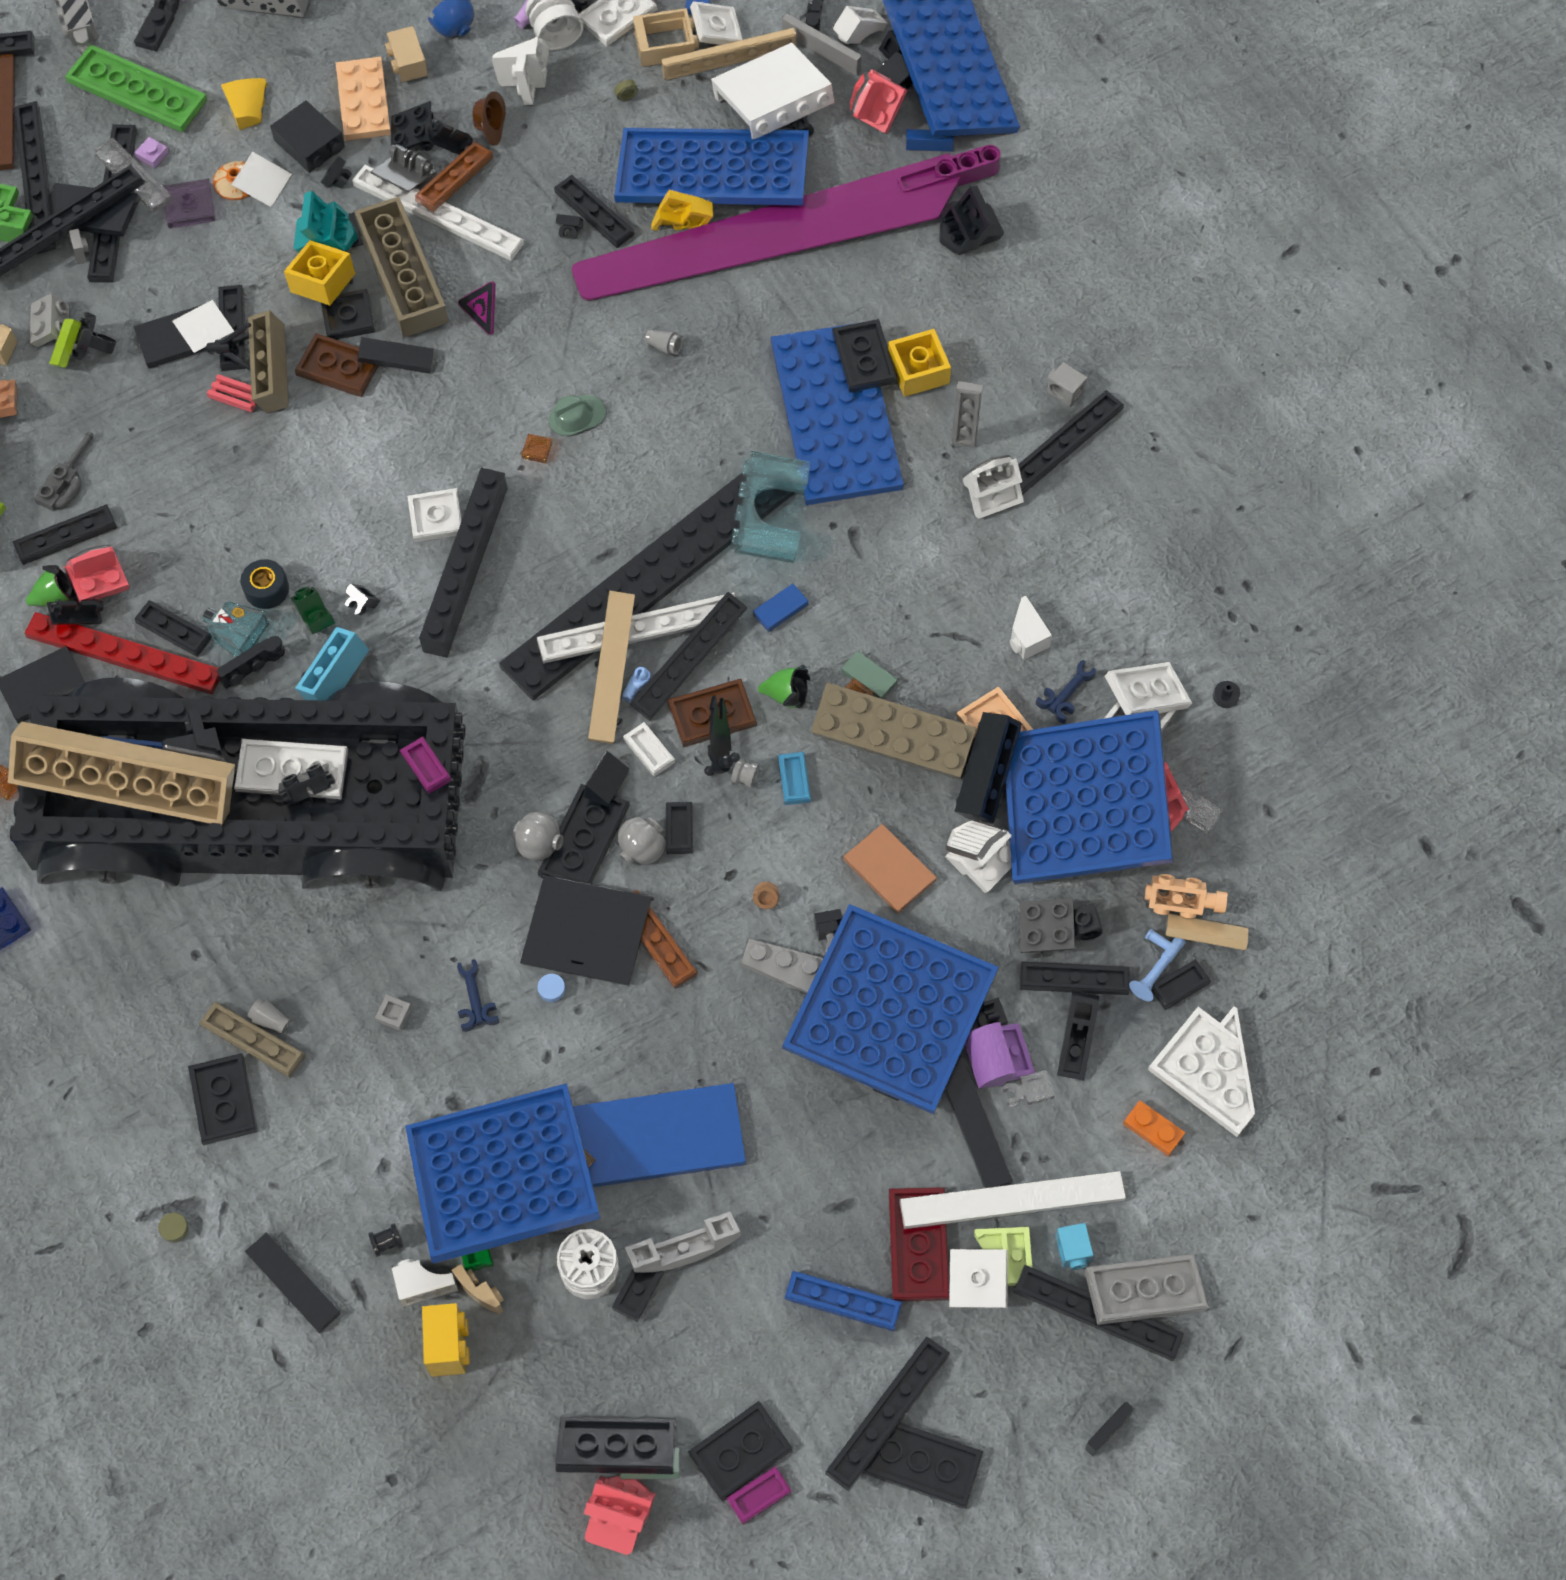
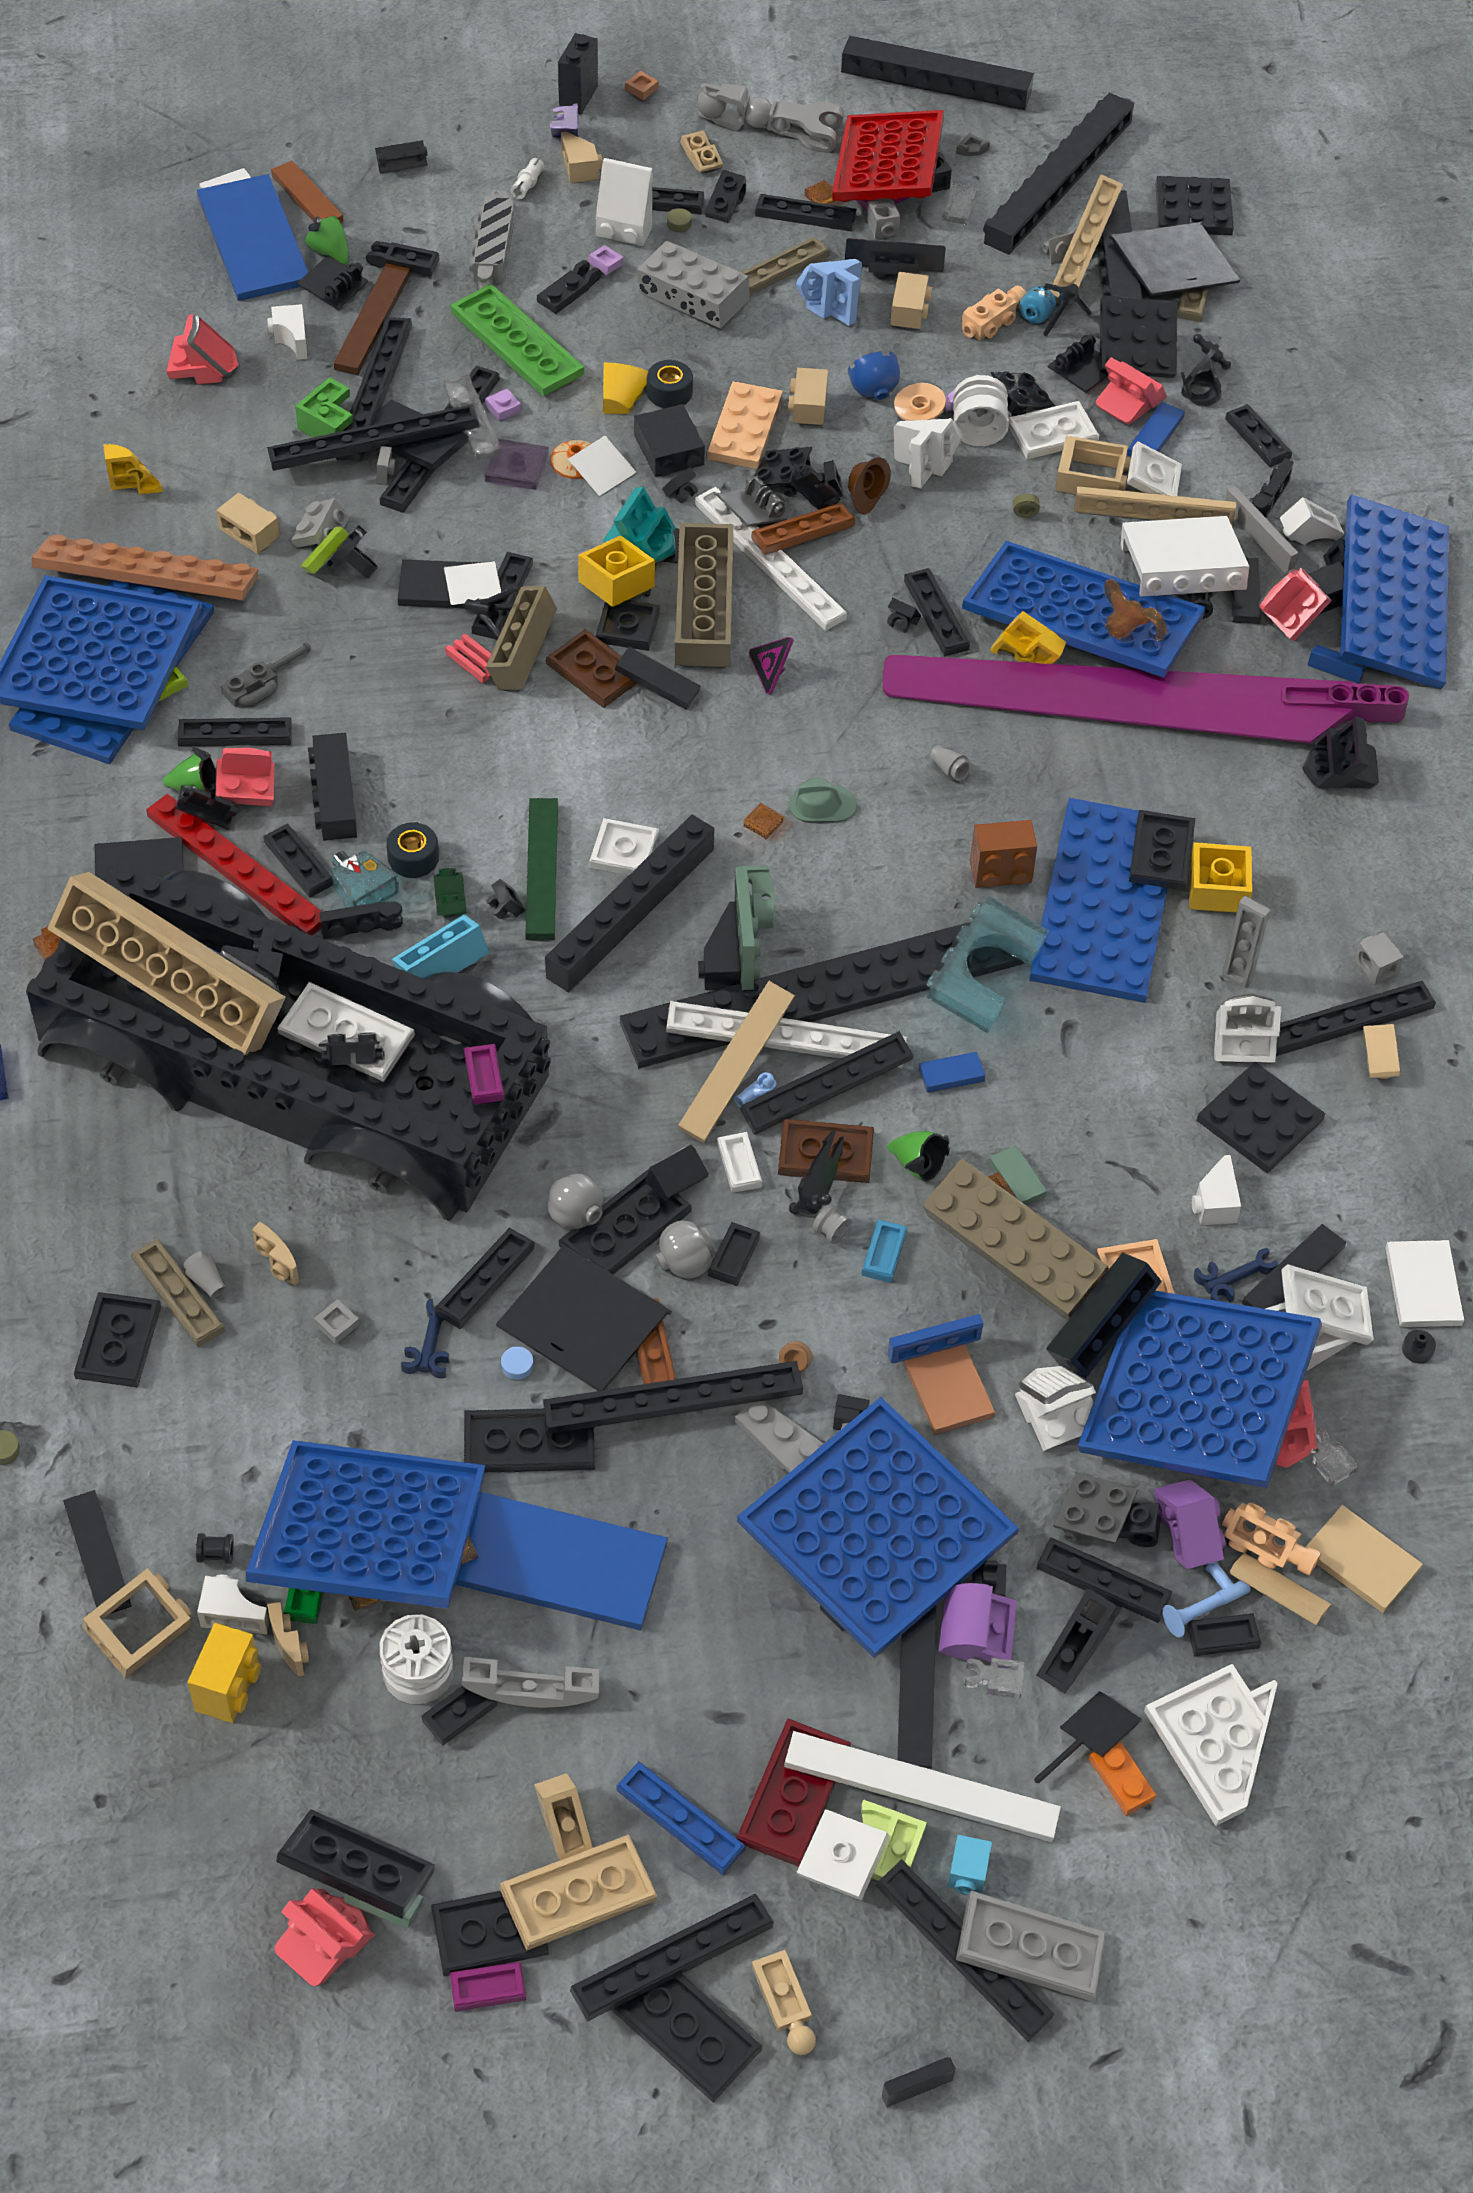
camera: 20 degrees right, 10 degrees down
(173, 552) = (334, 786): none -> black brick
(284, 84) = (669, 383): none -> black wheel
(324, 979) = (280, 1258): none -> tan slope
(341, 1353) = (109, 1643): none -> tan window
(377, 559) = (541, 869): none -> dark green tile
(457, 121) = (832, 476): none -> black tile
(493, 928) = (484, 1278): none -> black tile
(497, 21) = (920, 402): none -> light nougat dish
(558, 581) = (721, 954): none -> black slope
(567, 540) = (752, 914): none -> sand green plate
(590, 1046) = (520, 1442): none -> black tile
(687, 968) = (672, 1397): none -> black plate
(743, 407) = (1003, 853): none -> dark orange brick
(756, 161) = (1129, 614): none -> clear orange piece
(756, 1339) = (563, 1816): none -> tan slope
(794, 1393) = (577, 1892): none -> tan tile
(837, 114) = (1245, 602): none -> black tile
(867, 838) = (935, 1338): none -> blue tile
(985, 1409) = (785, 2000): none -> tan plate
(1031, 552) = (1260, 1117): none -> black plate
(1101, 461) = (1381, 1051): none -> tan slope
(1114, 657) = (1310, 1255): none -> black tile
(1120, 1096) = (1097, 1726): none -> black piece
(1123, 906) = (1193, 1523): none -> medium lavender brick
(1210, 641) = (1424, 1283): none -> white tile
(1256, 882) = (1364, 1559): none -> tan tile

